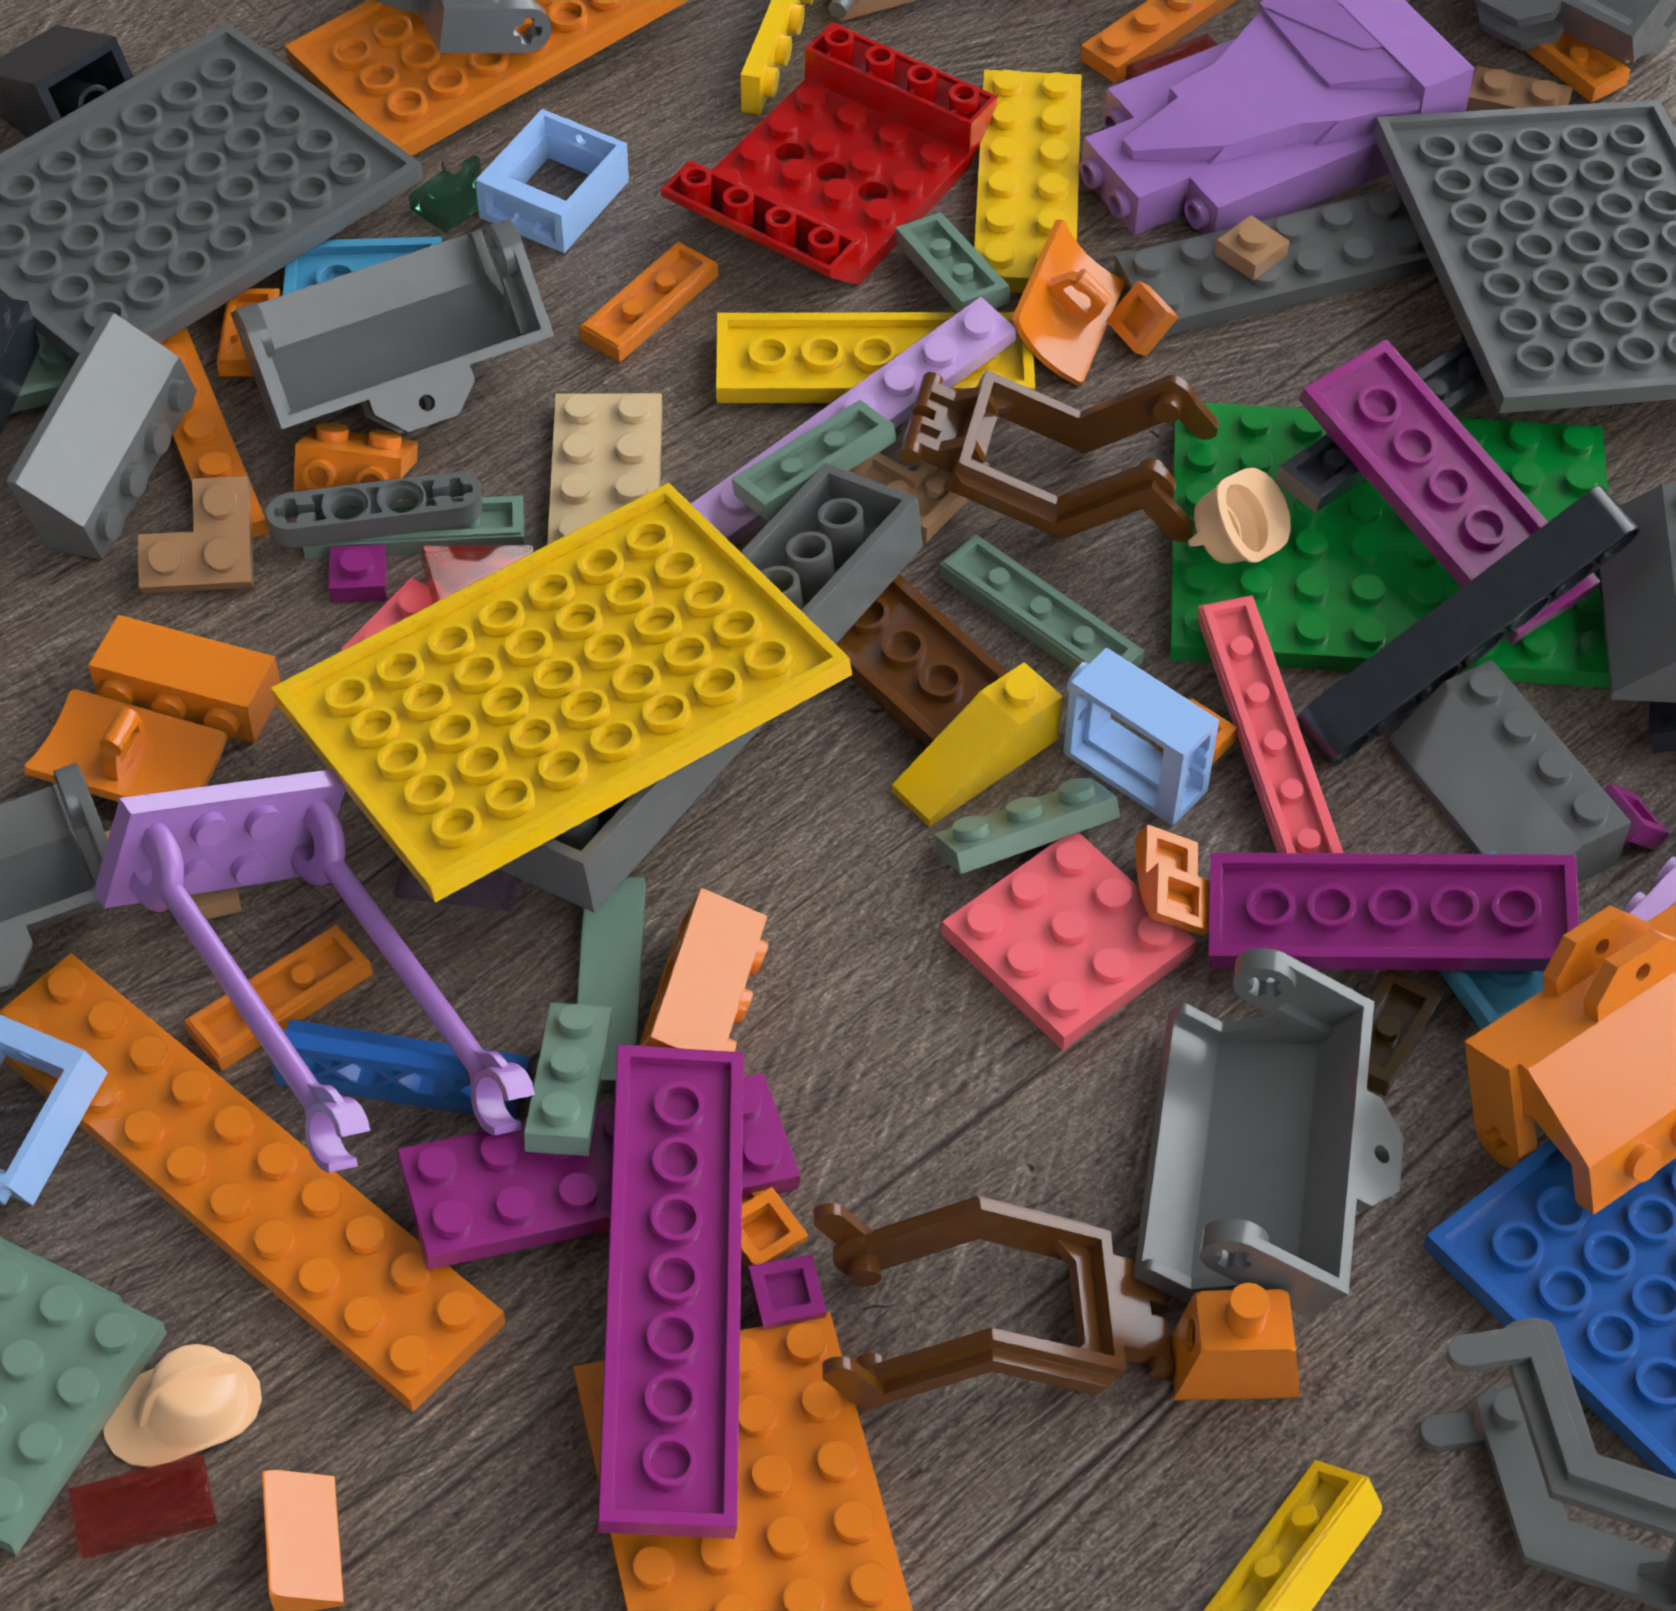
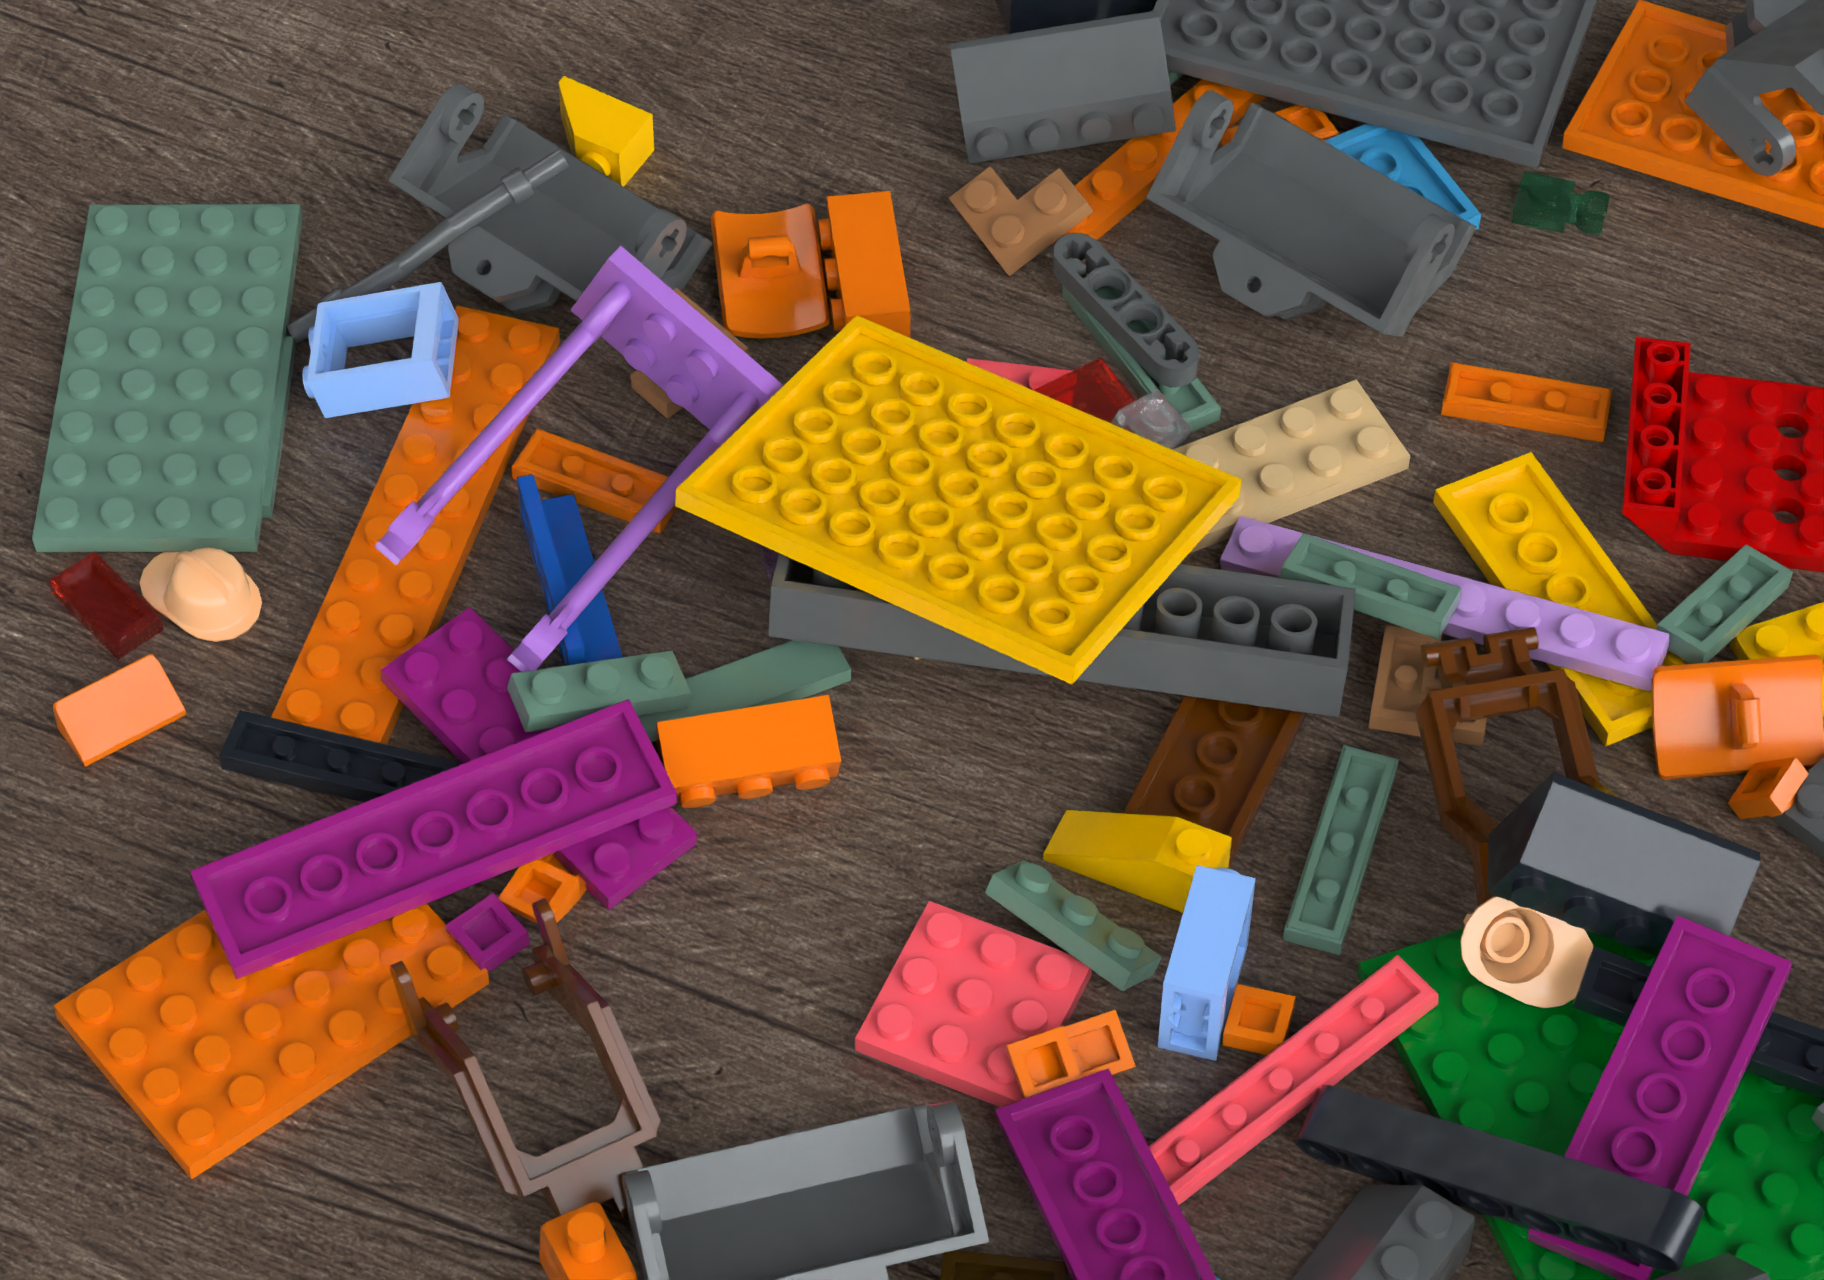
camera: 65 degrees right, 0 degrees up
(338, 457) = (1178, 271): orange bracket -> none
(358, 573) = (1063, 335): magenta plate -> none
(498, 1354) = (323, 759): none -> black plate
(516, 538) = (1154, 420): none -> clear plate
(539, 215) = (1618, 230): light blue window -> none
(1236, 408) = (1615, 866): none -> slope

